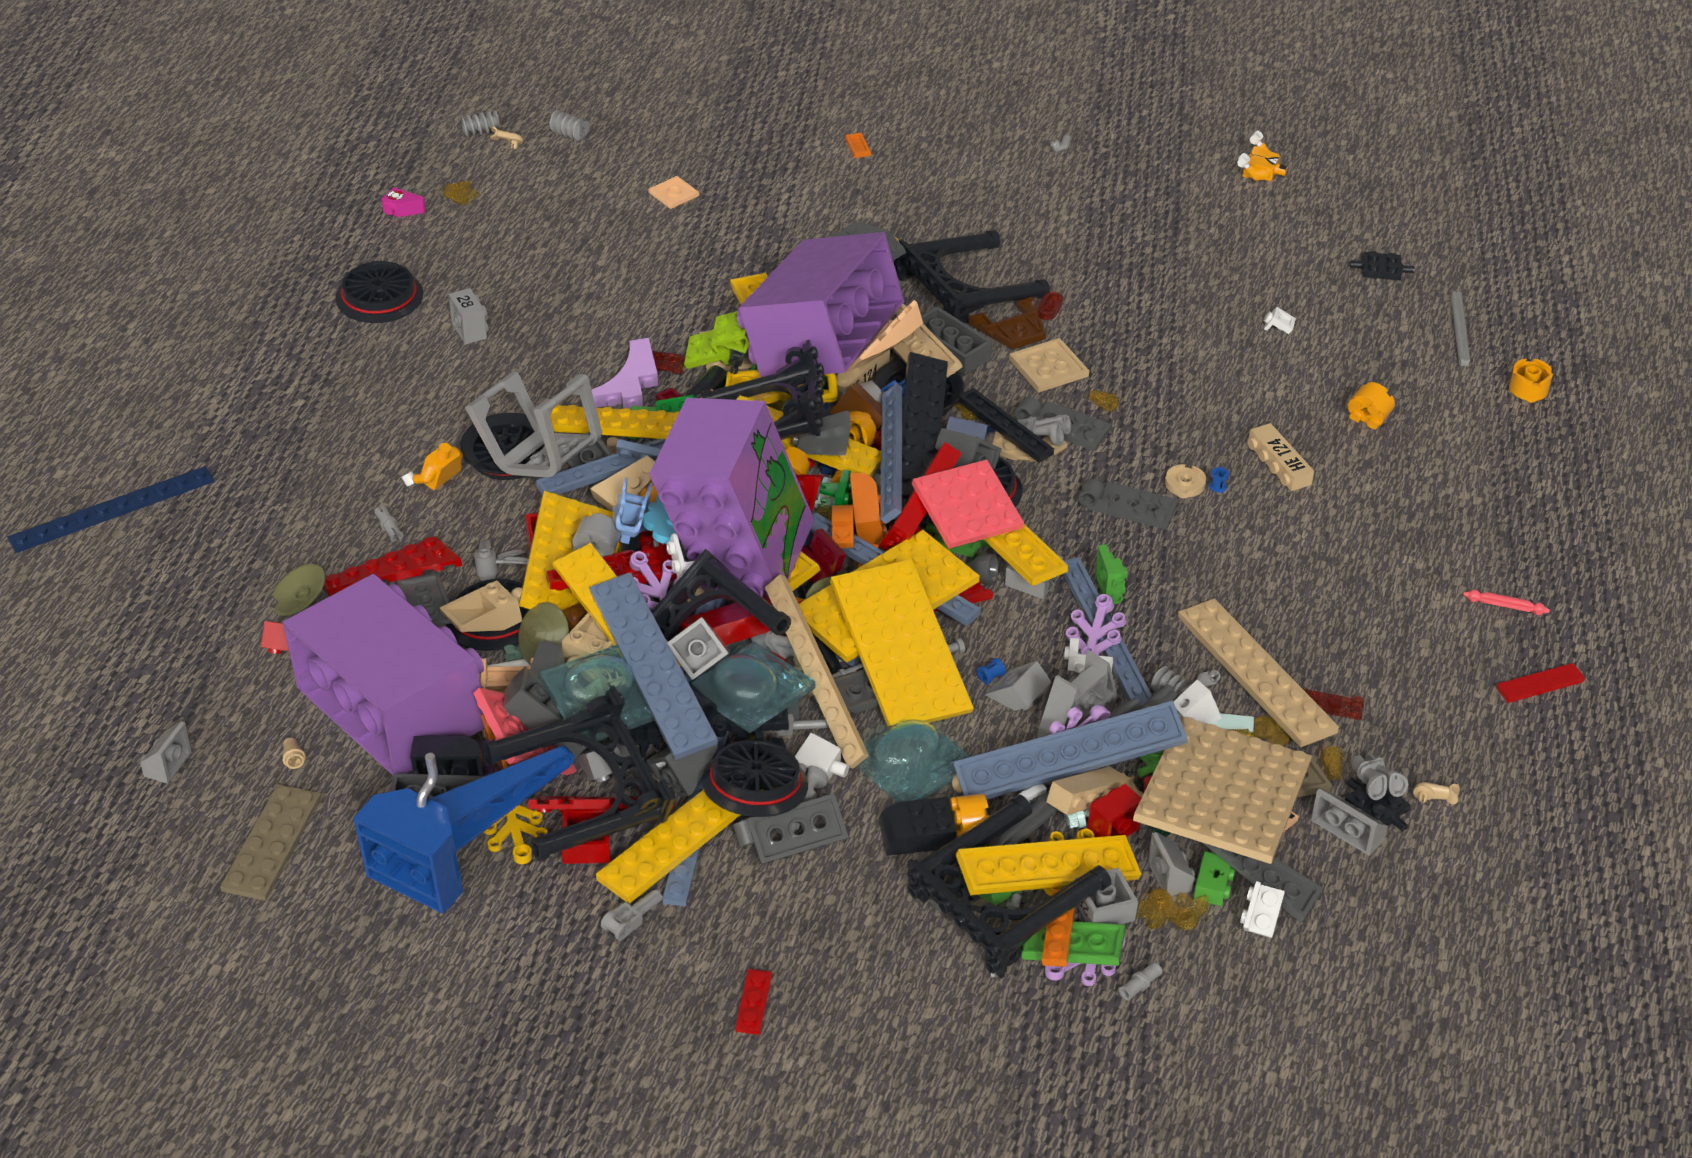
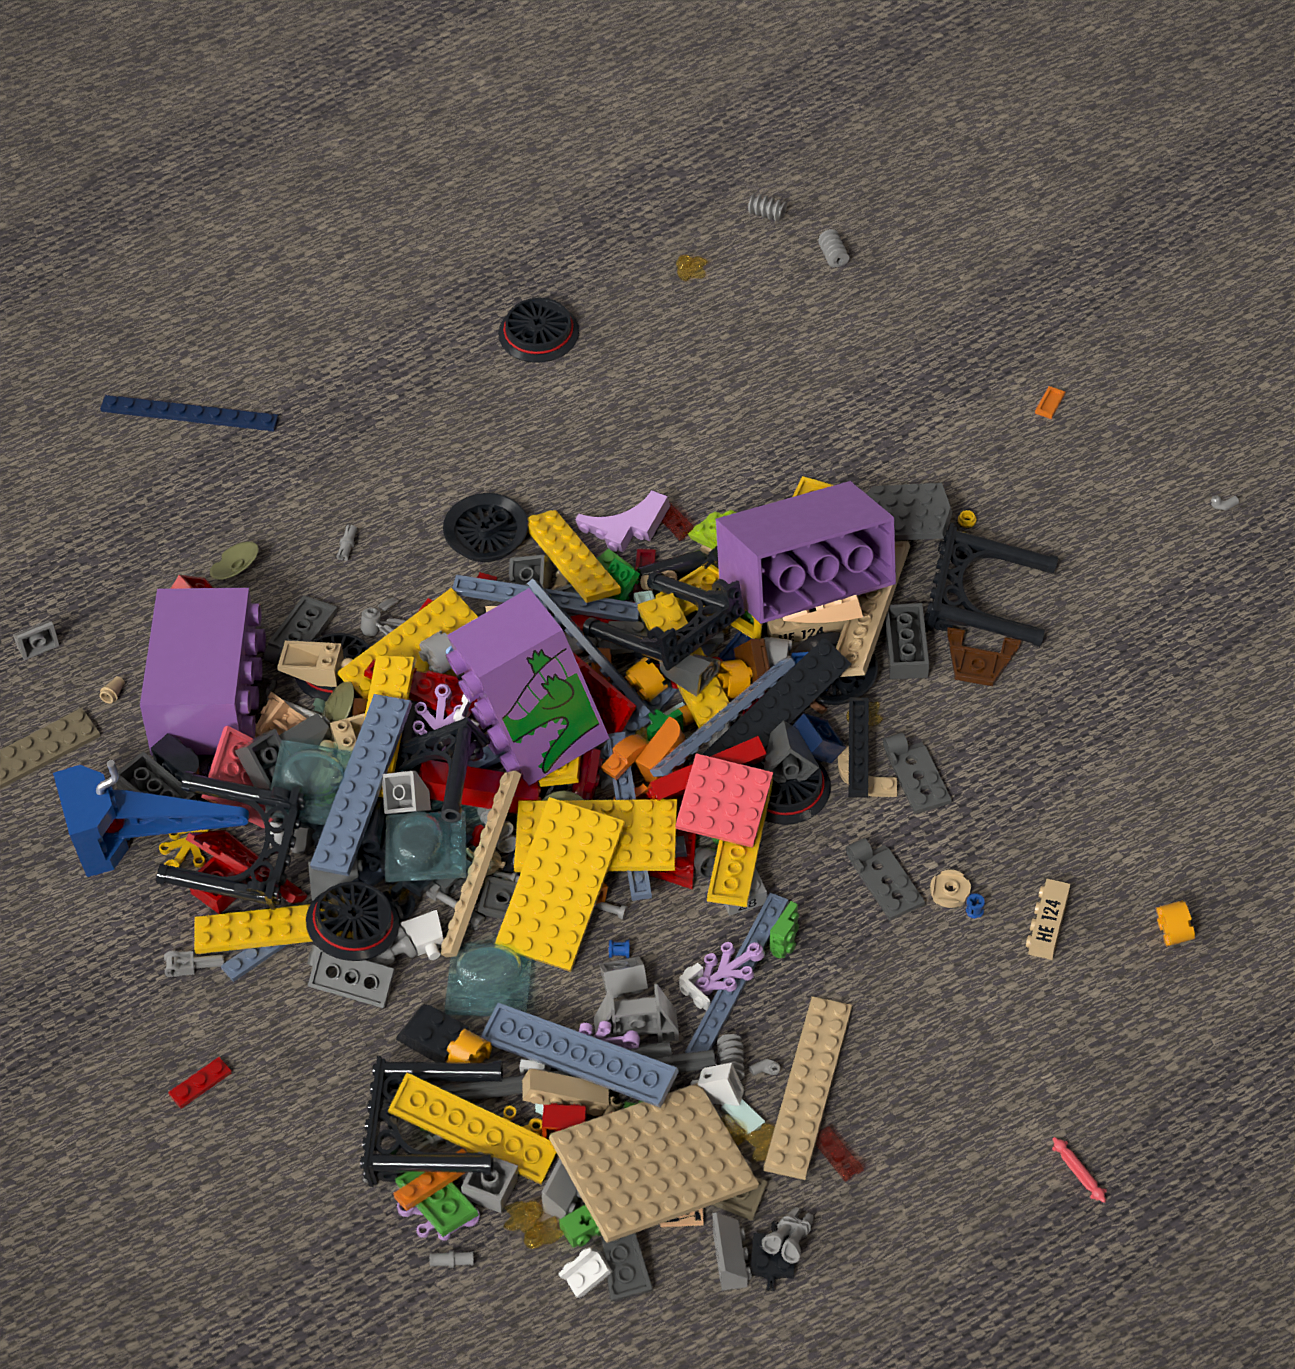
camera: 45 degrees right, 10 degrees up
(398, 565) = (317, 583): red wing -> none
(402, 203) = (633, 253): dark pink slope -> none
(437, 468) = (421, 515): light orange torso -> none
(468, 316) = (570, 392): light grey brick -> none
(515, 139) = (779, 234): tan piece -> none
(558, 447) = (494, 559): light grey windscreen -> none
(673, 192) = (852, 363): light nougat tile -> none
(1049, 365) = (964, 713): tan plate -> none
(1050, 305) = (1028, 657): clear red plate -> none
(1053, 427) = (879, 767): light grey piece -> none
(1104, 400) = (970, 774): clear yellow cone -> none
(1280, 319) = (1204, 794): white bracket -> none
(1333, 762) = (778, 1200): clear yellow cone -> none
(1427, 791) = (818, 1273): tan piece -> none
(1540, 683) = (1020, 1254): red tile -> none

